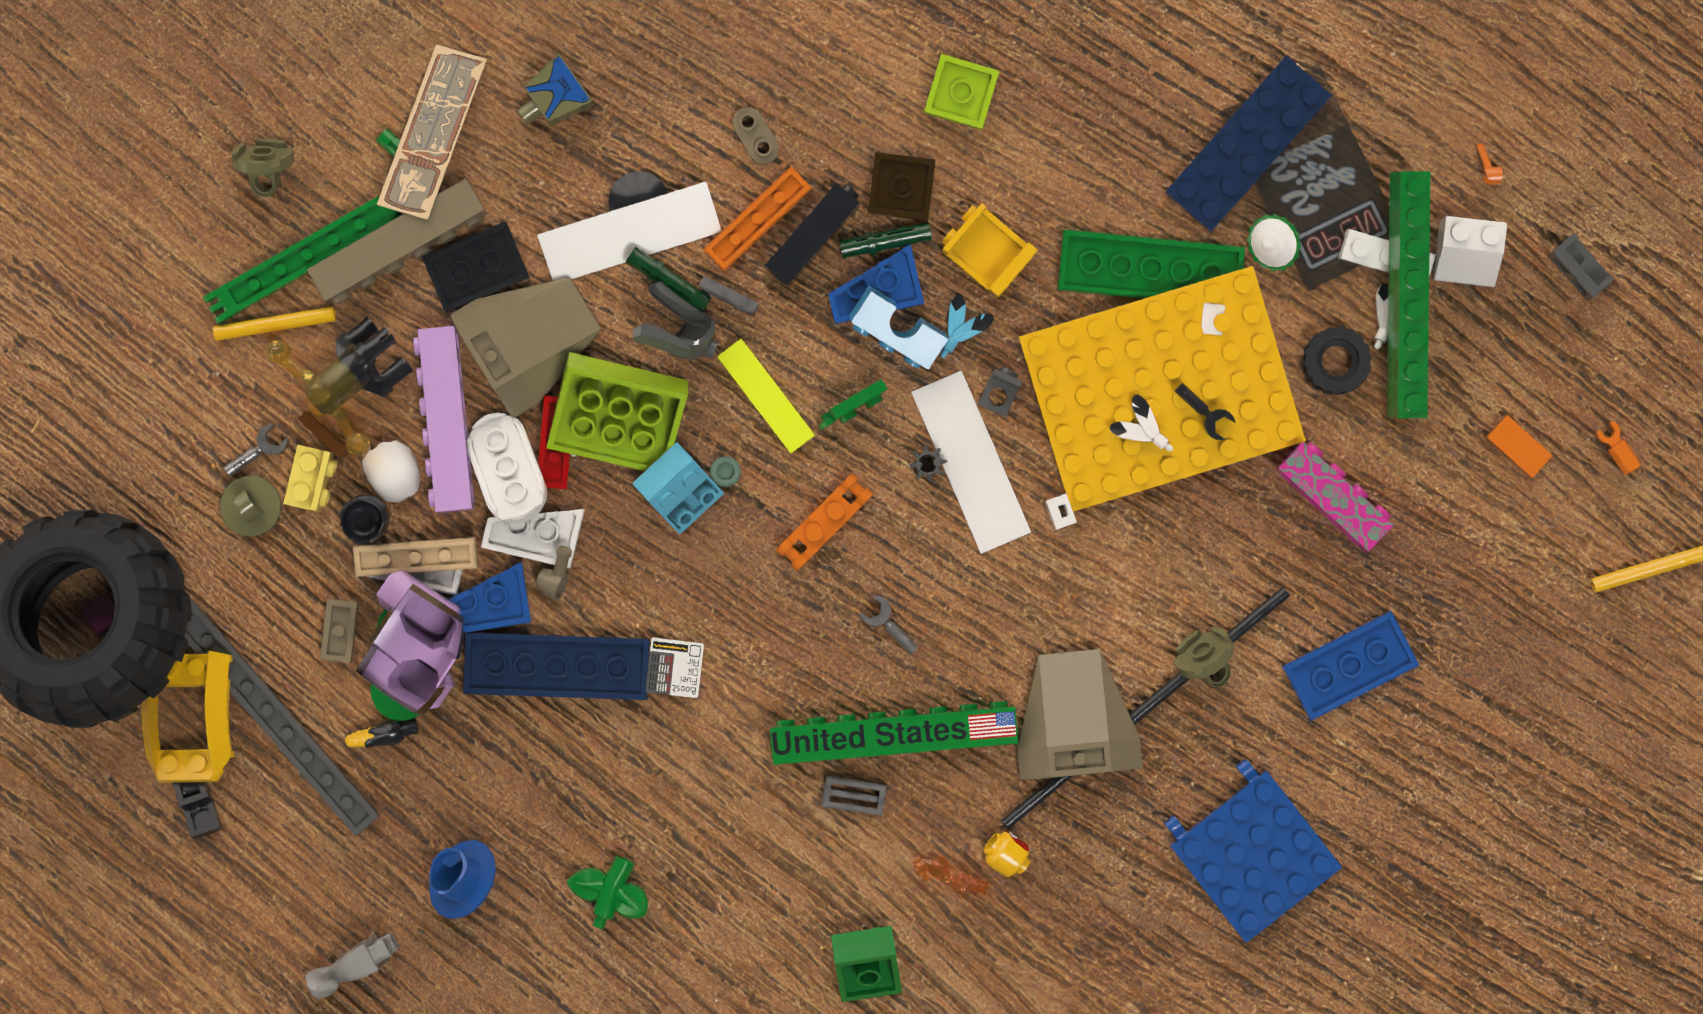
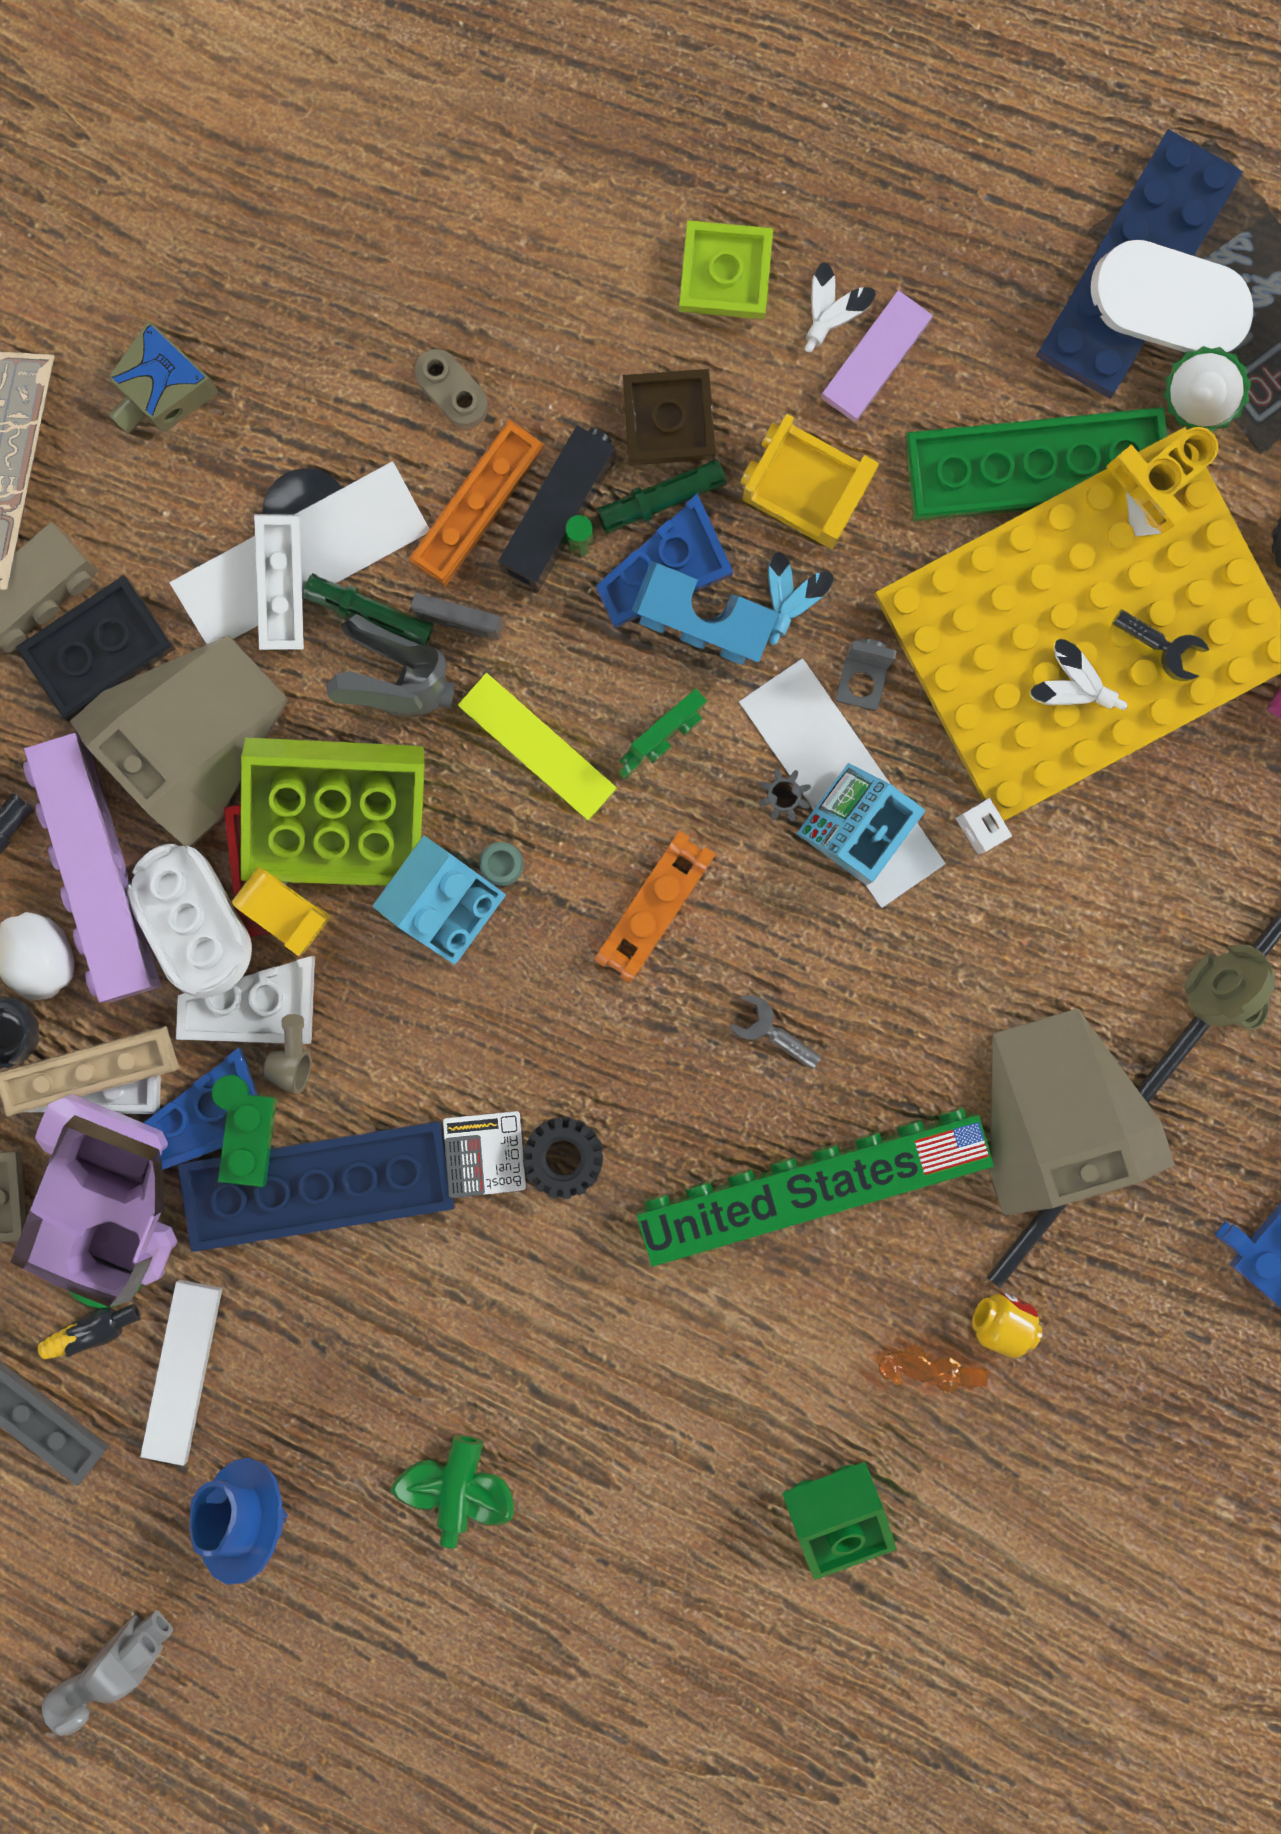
camera: 15 degrees left, 0 degrees up
(439, 774) = (181, 1372): none -> white tile
(517, 619) = (246, 1132): none -> green hinge
(570, 474) = (280, 911): none -> yellow tile
(612, 249) = (279, 581): none -> white plate
(746, 675) = (563, 1184): none -> black tyre
(823, 256) = (579, 534): none -> green piece
(854, 783) = (773, 1266): flat silver tile -> none
(975, 492) = (861, 823): none -> medium azure slope
(1026, 134) = (831, 314): none -> white piece
(1054, 172) = (876, 356): none -> lavender tile
(1235, 294) = (1175, 469): none -> yellow tile
(1262, 176) = (1171, 297): none -> white tile

